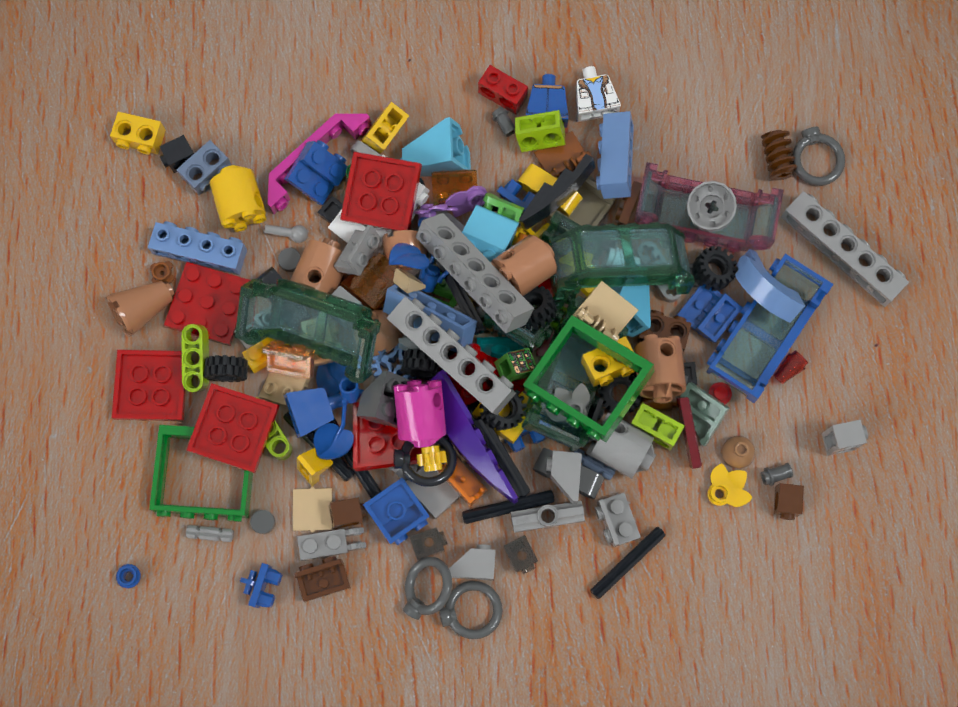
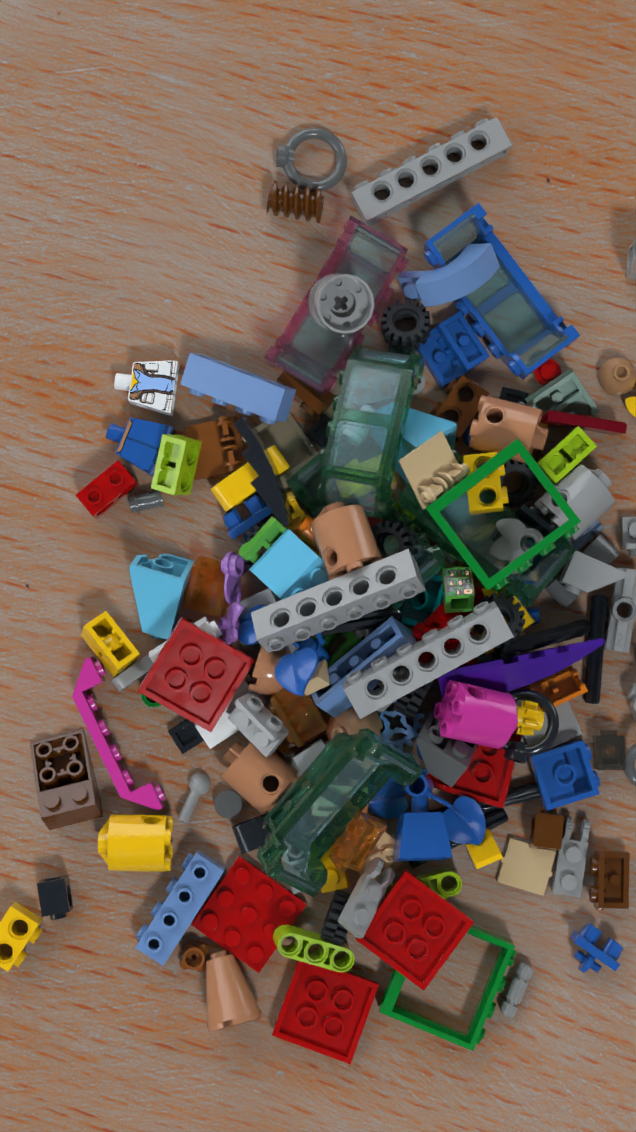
camera: 75 degrees left, 10 degrees up
(121, 573) = (541, 1100): blue plate -> none
(200, 164) = (76, 872): sand blue brick -> none
(245, 380) = (366, 898): none -> light grey hinge
(262, 522) = (523, 926): dark grey tile -> none
(268, 133) = (65, 780): none -> reddish brown slope
(317, 171) = (135, 739): blue plate -> none
(790, 367) = (545, 283): clear red cone -> none

